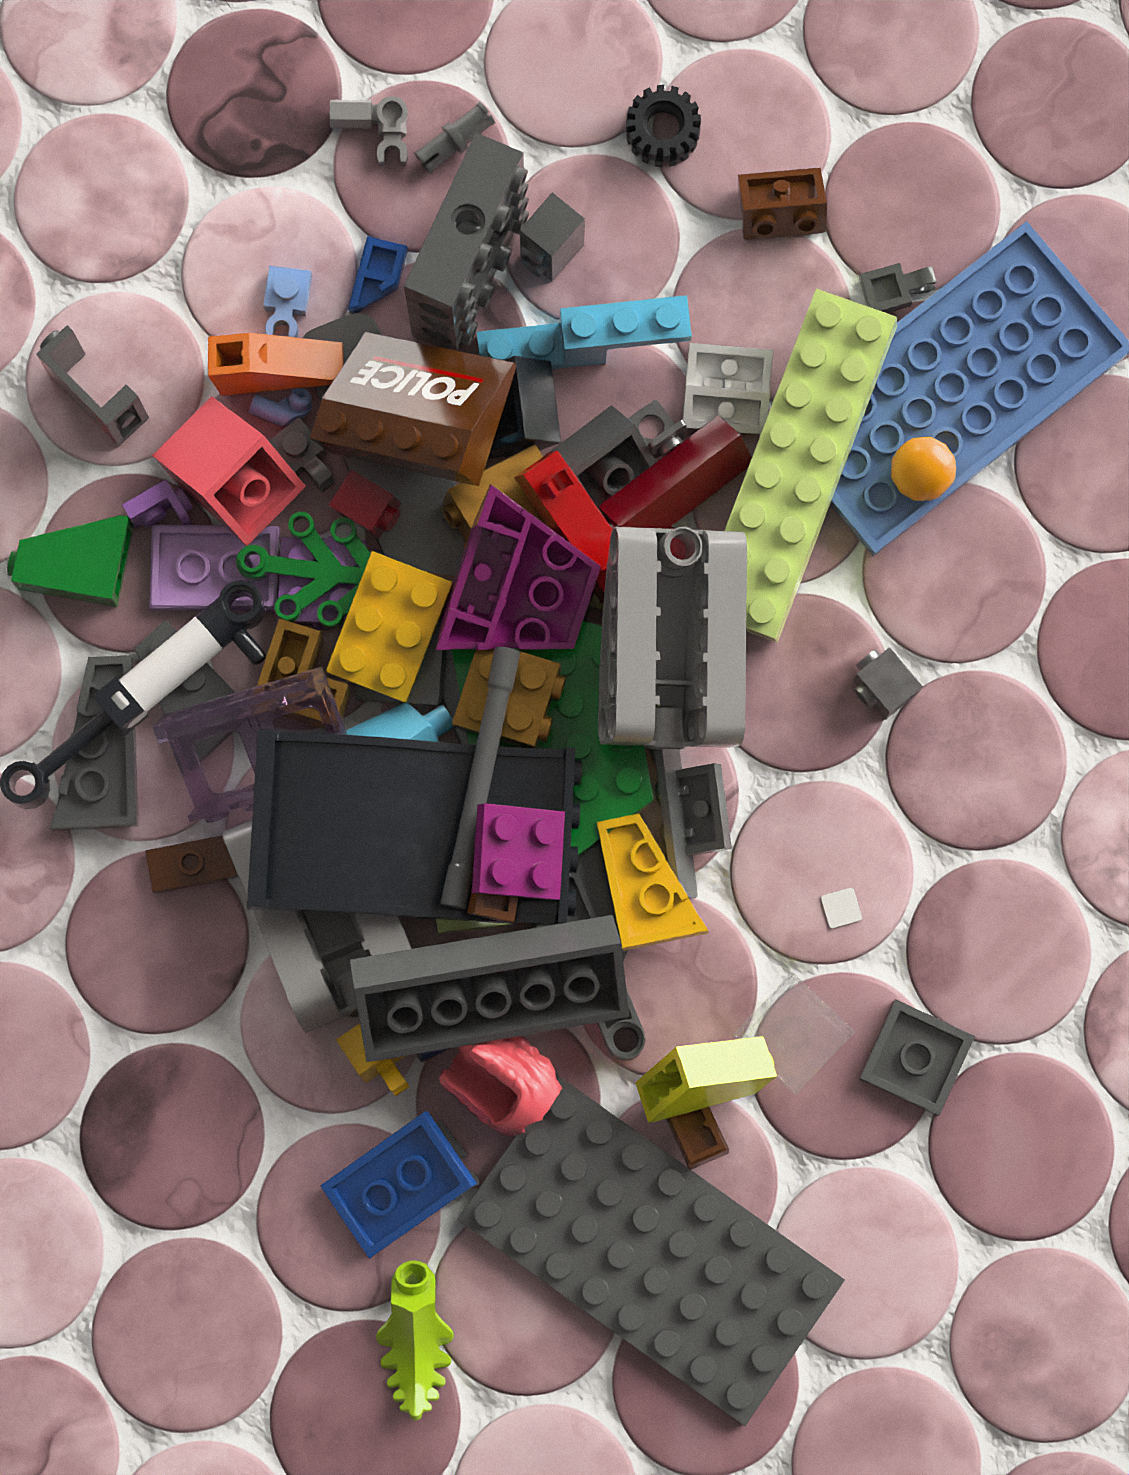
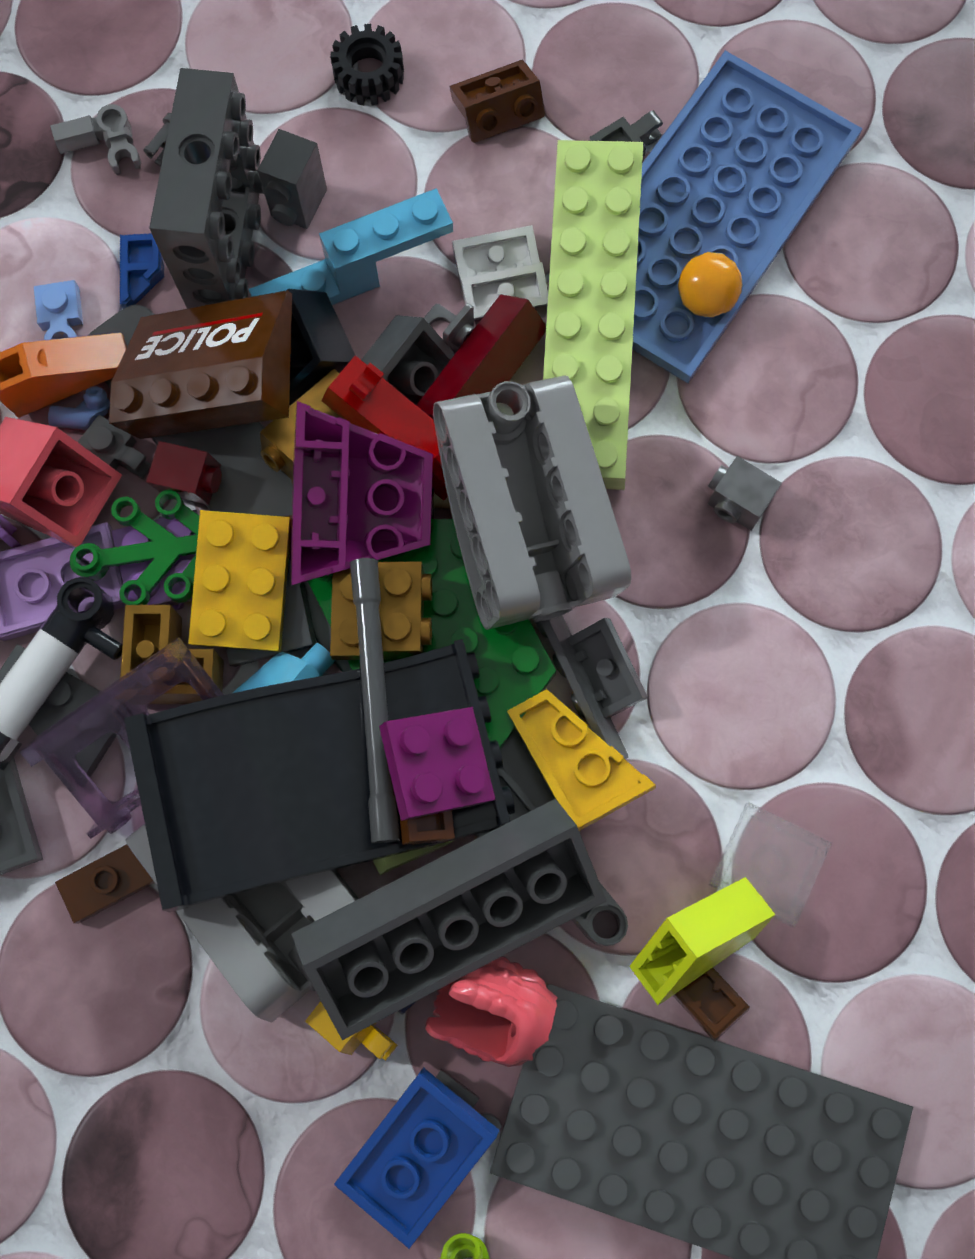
camera: 15 degrees left, 5 degrees down
(841, 907) = (772, 723): white sticker -> none
(916, 1057) = (900, 849): dark grey tile -> none

